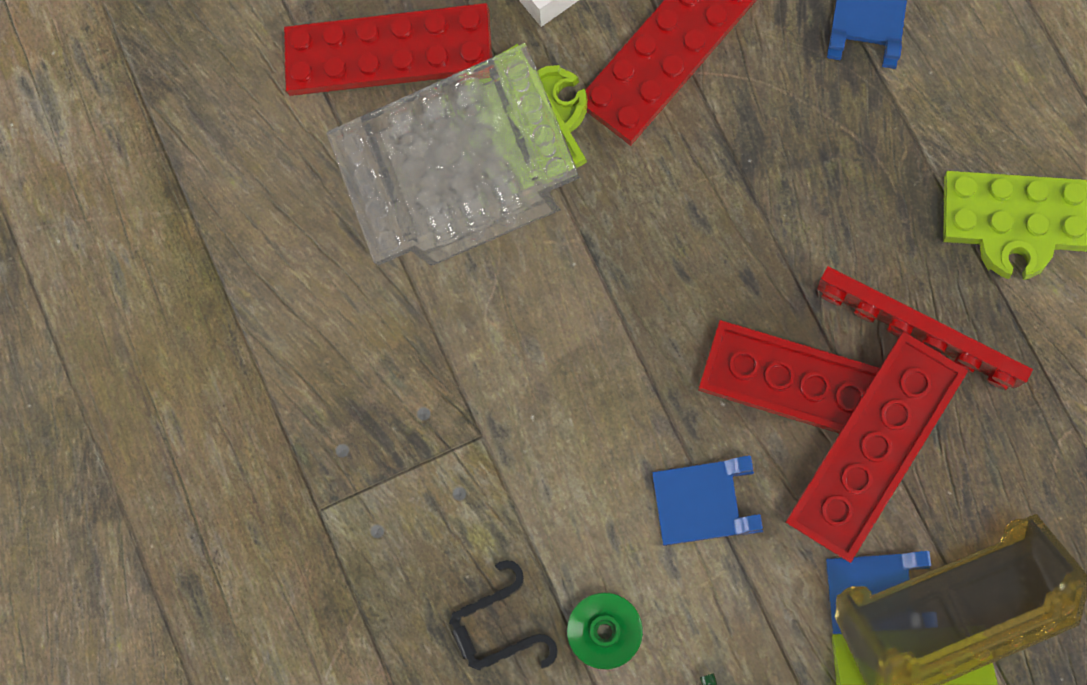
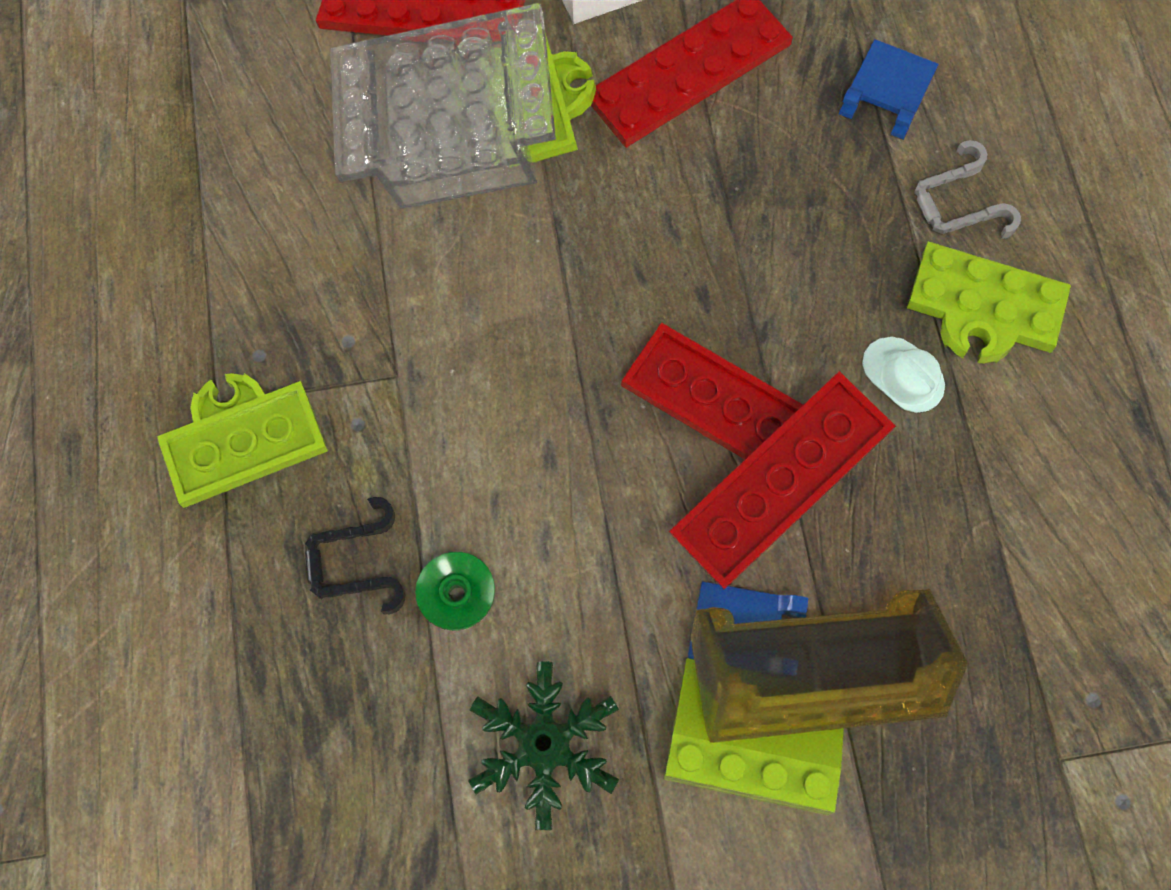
camera: 10 degrees right, 5 degrees down
(354, 538) = (239, 438): none -> lime plate
(702, 502) = (594, 493): blue flag -> none
(940, 136) = (931, 212): none -> light grey piece
(958, 305) = (904, 373): none -> light aqua piece
(967, 352) = (821, 345): red plate -> none

